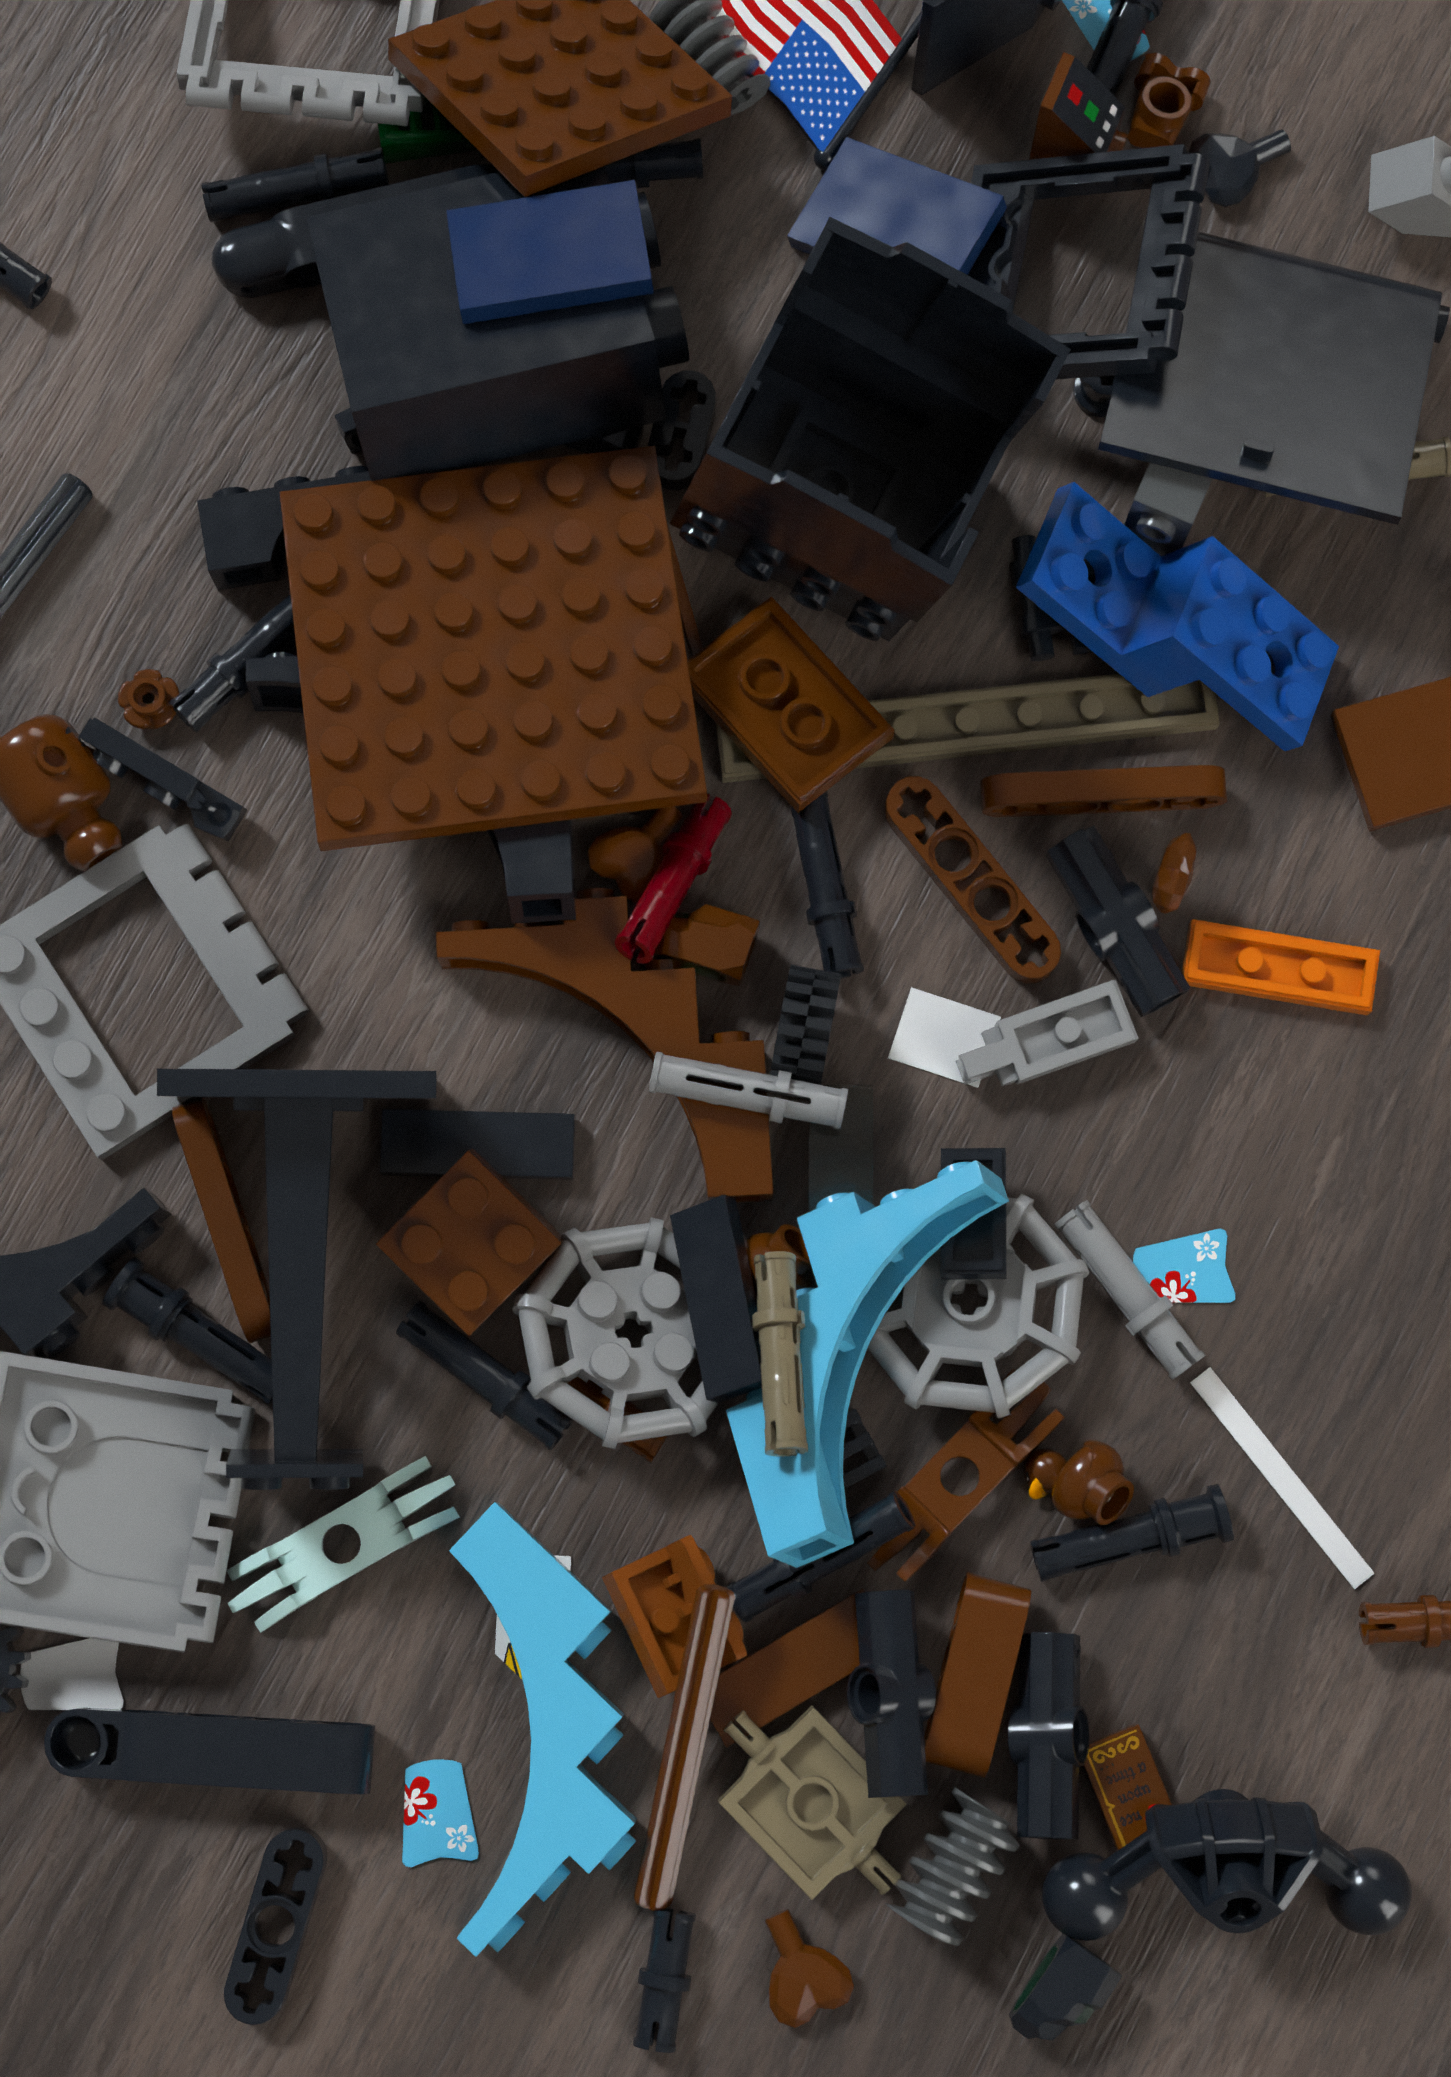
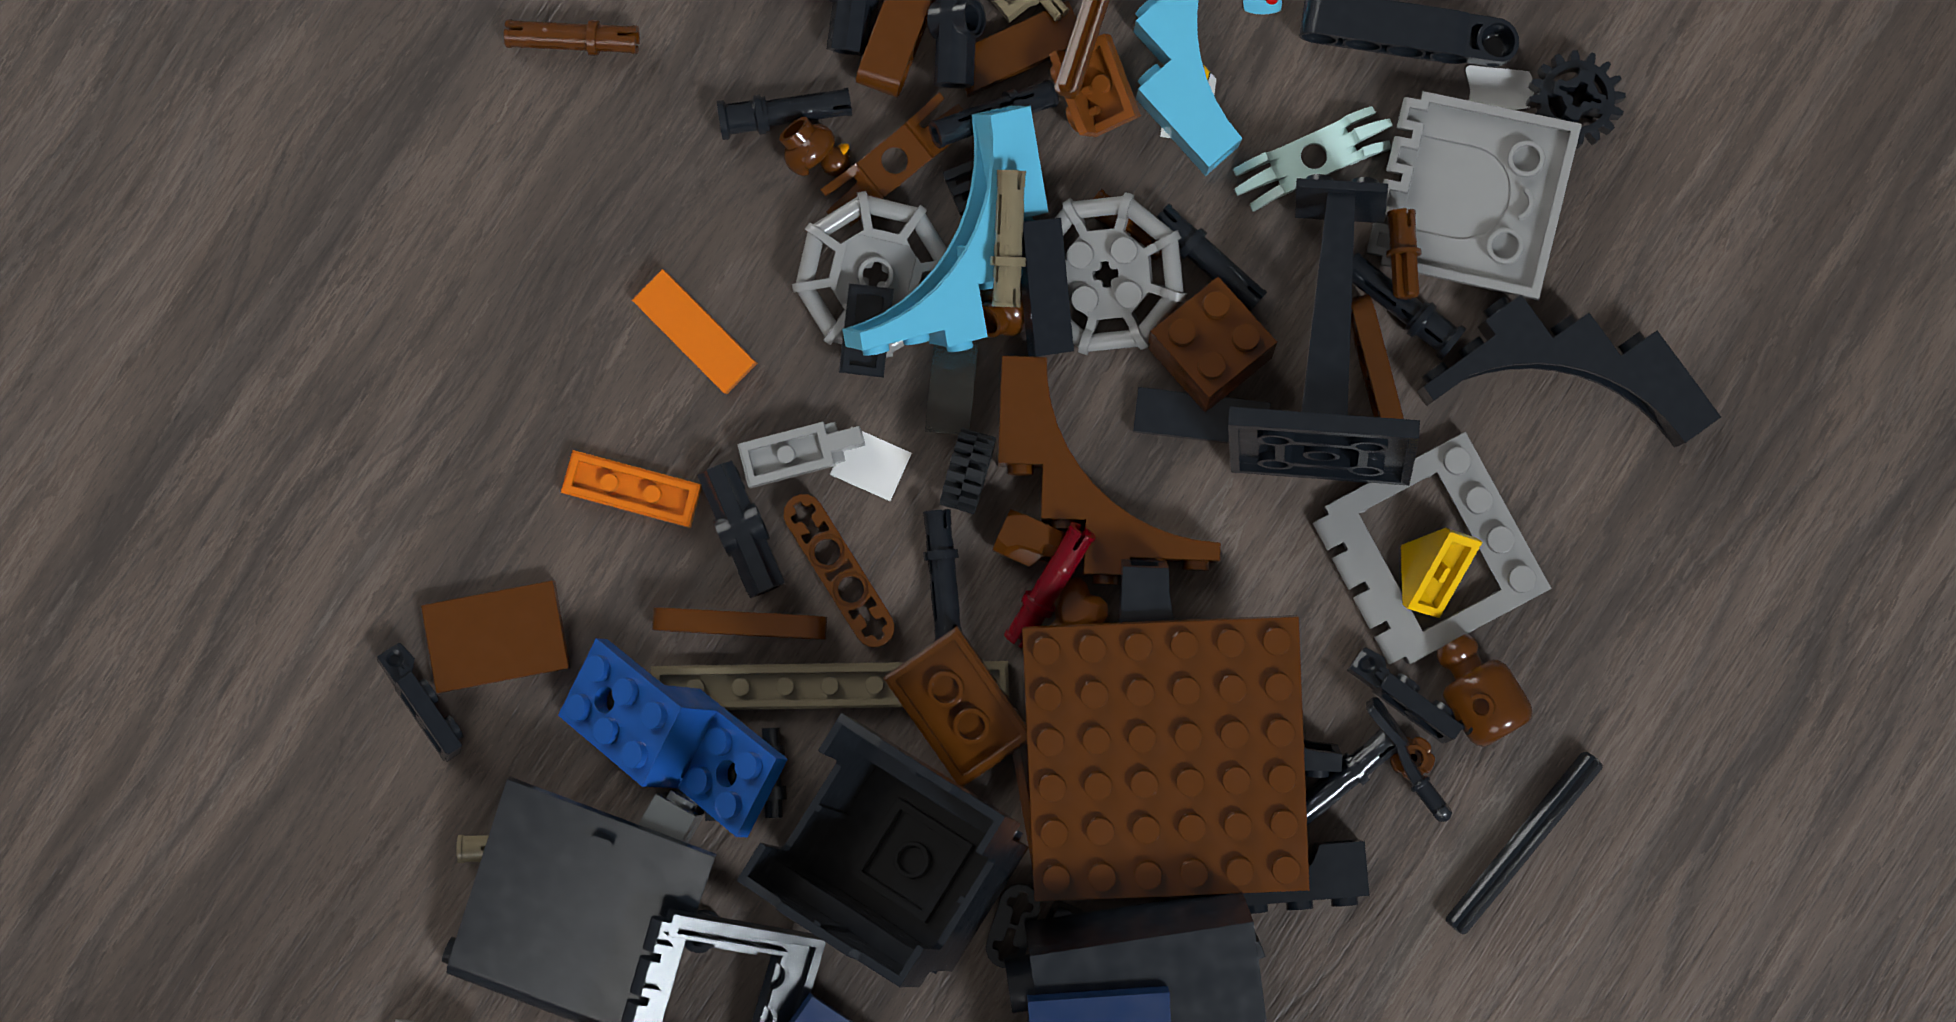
camera: 170 degrees left, 5 degrees up
(132, 955) = (1434, 569): none -> yellow slope
(184, 730) = (1420, 783): none -> black piece
(199, 1400) = (1403, 252): none -> reddish brown axle
(825, 1107) = (1014, 425): light grey pin -> none
(1130, 1290) = (764, 273): light grey pin -> none
(1174, 873) = (699, 550): reddish brown rock -> none
(1188, 1268) = (726, 286): medium azure sticker -> none
(1220, 1198) = (695, 331): none -> orange tile
(1282, 1478) = (677, 143): white sticker -> none

